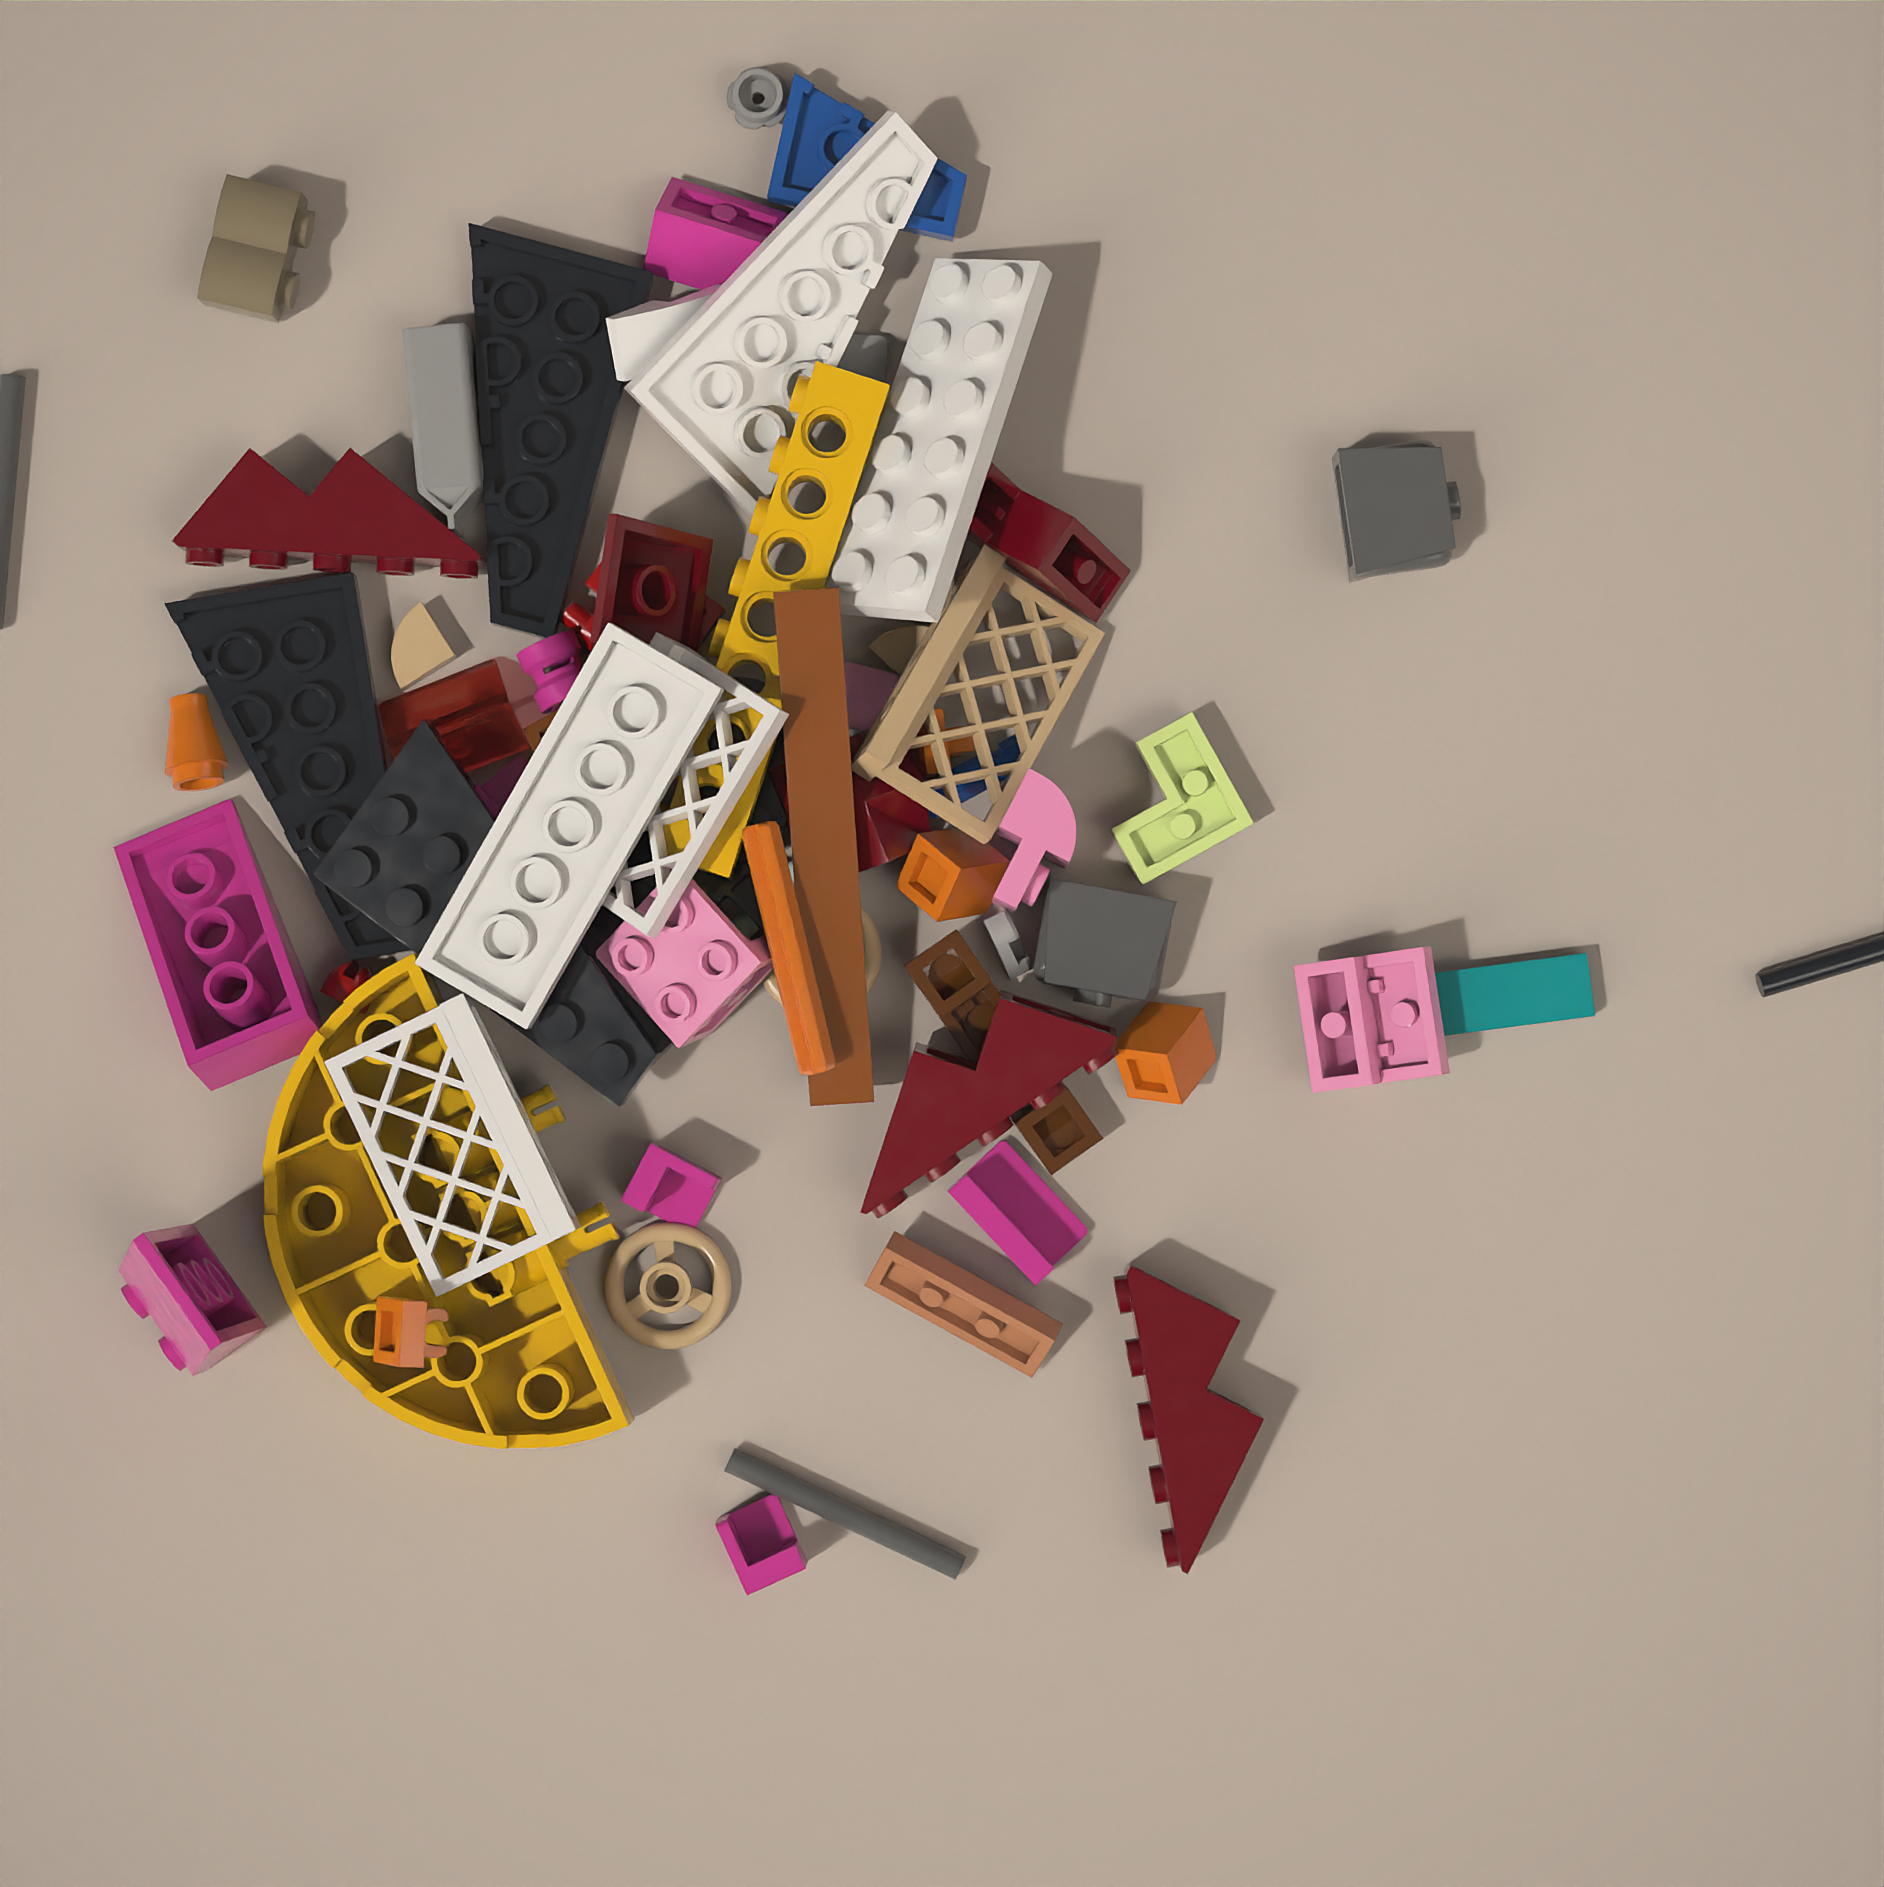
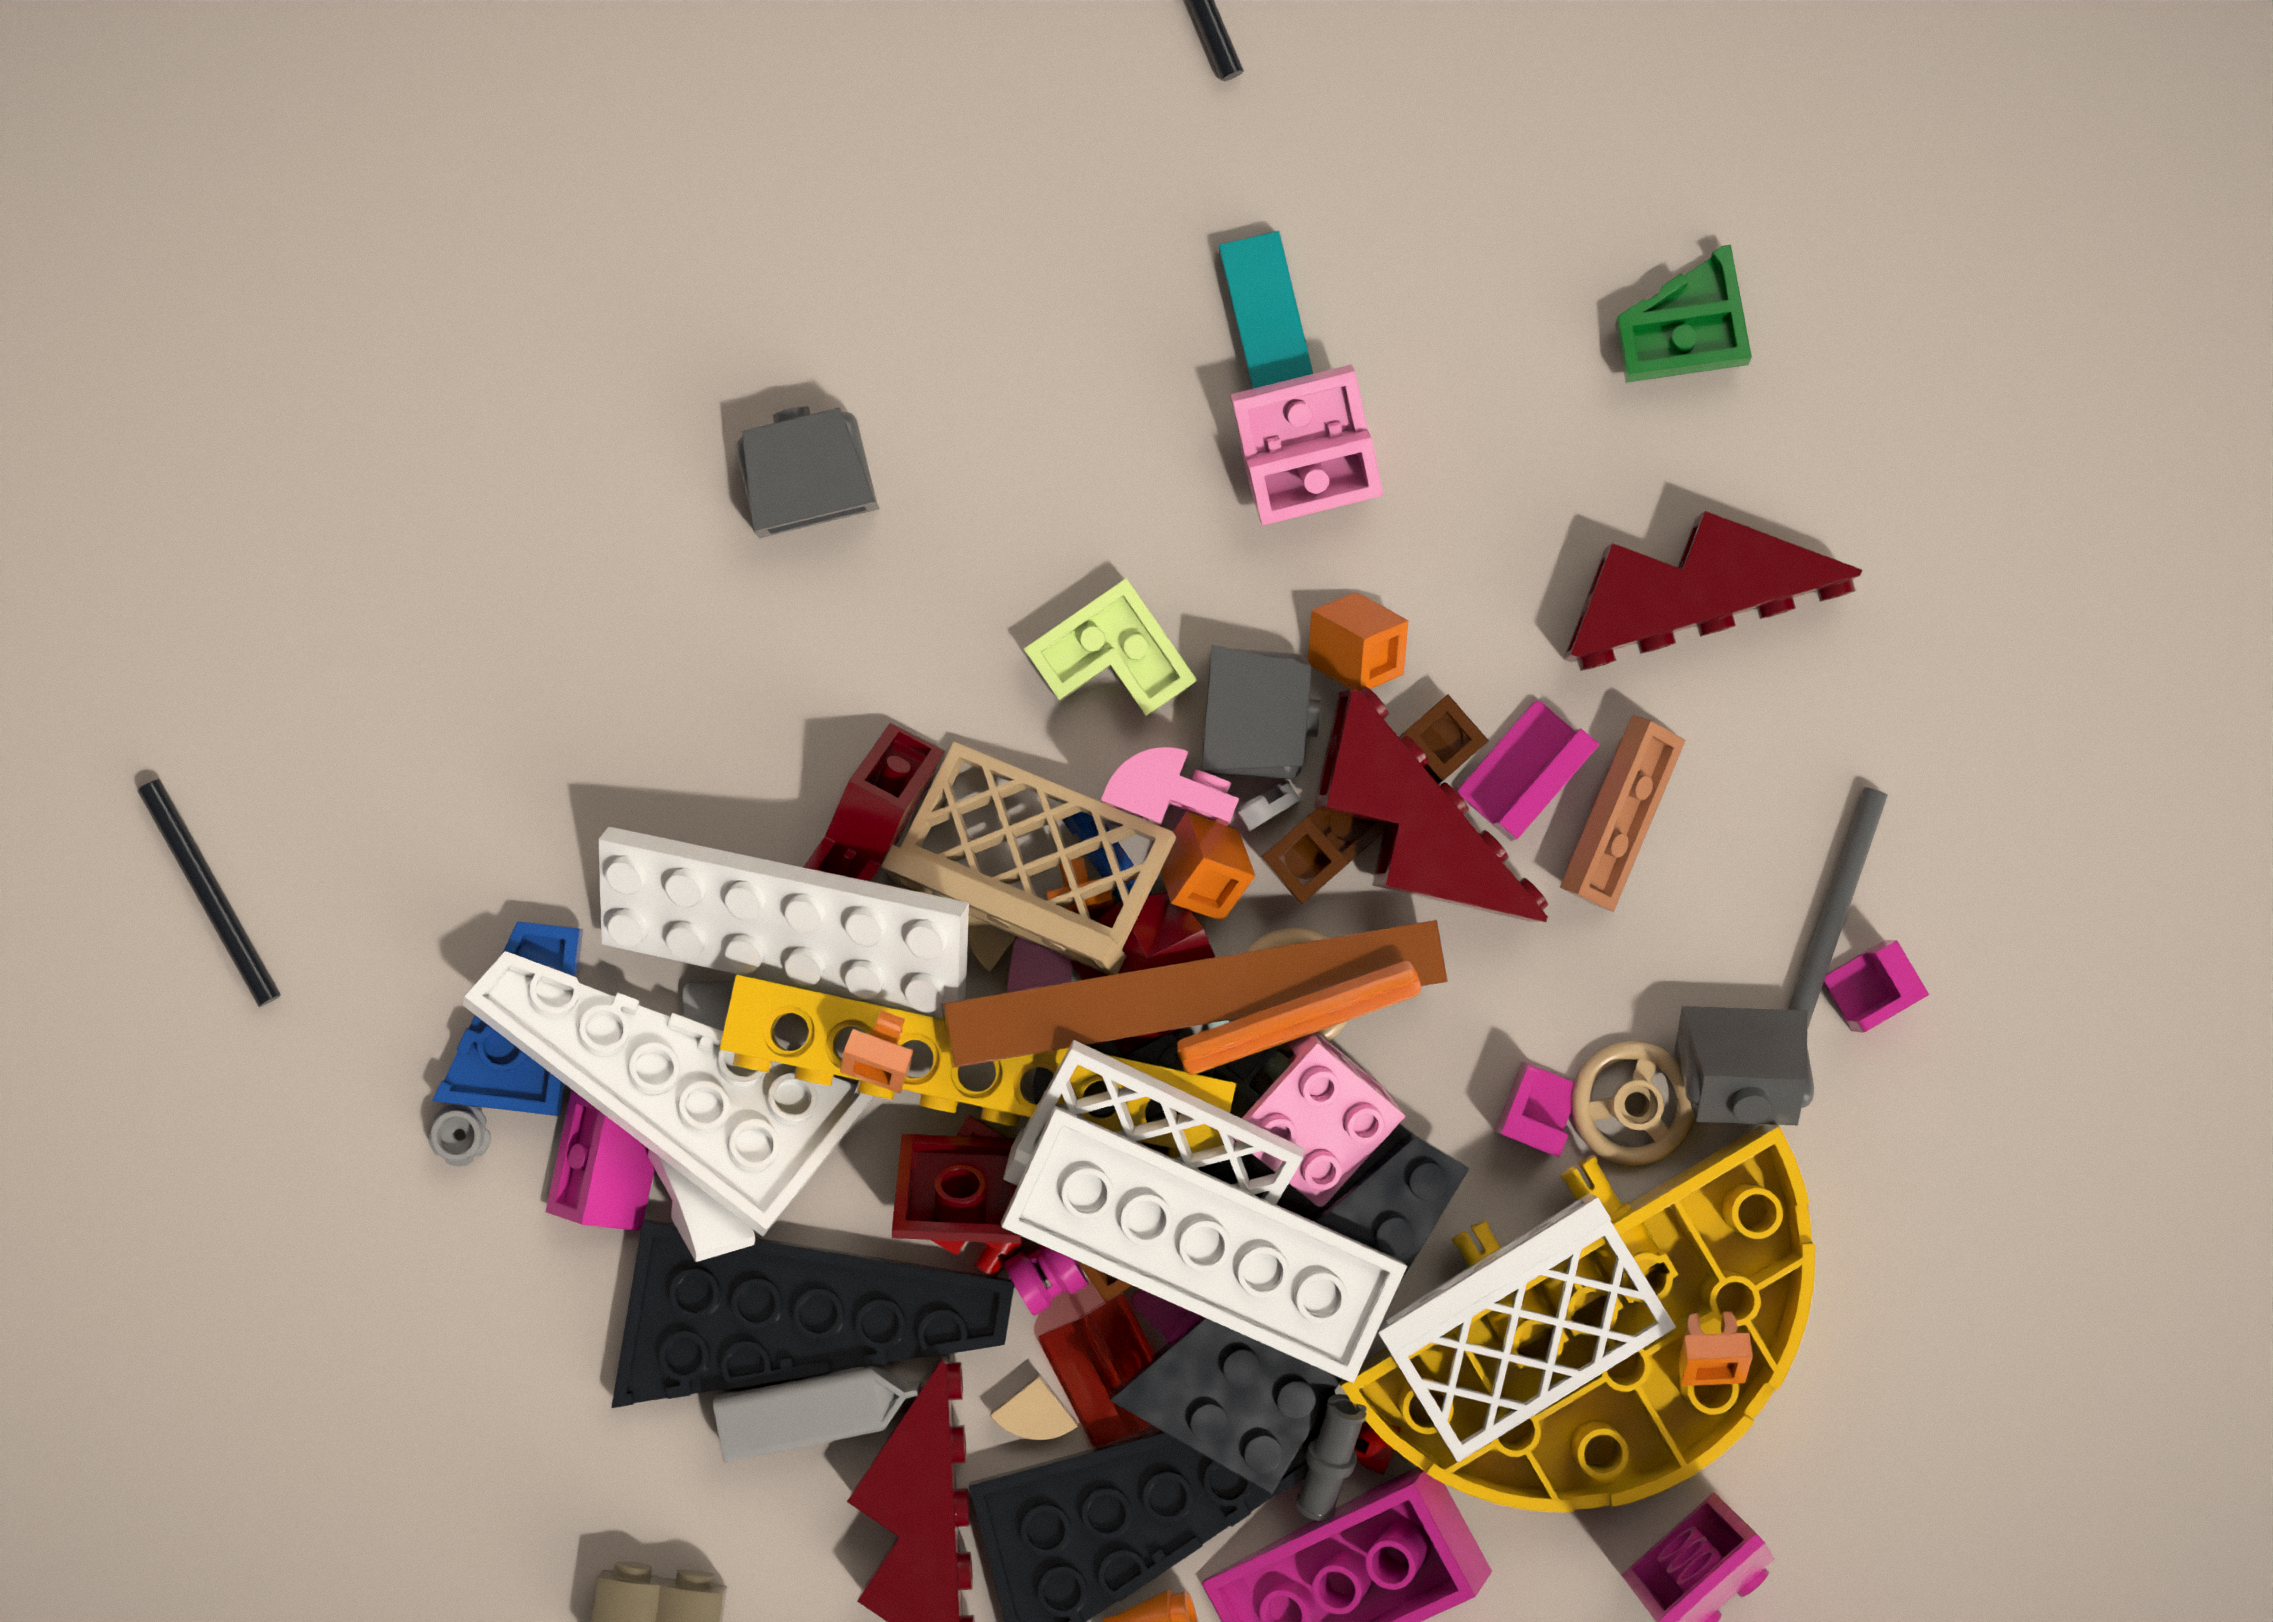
camera: 90 degrees left, 0 degrees up
(341, 937) = (1330, 1458): none -> dark grey pin
(695, 1400) = (1745, 1064): none -> dark grey torso
(793, 518) = (878, 1056): none -> orange tile
(1457, 1424) = (1688, 325): none -> green wing

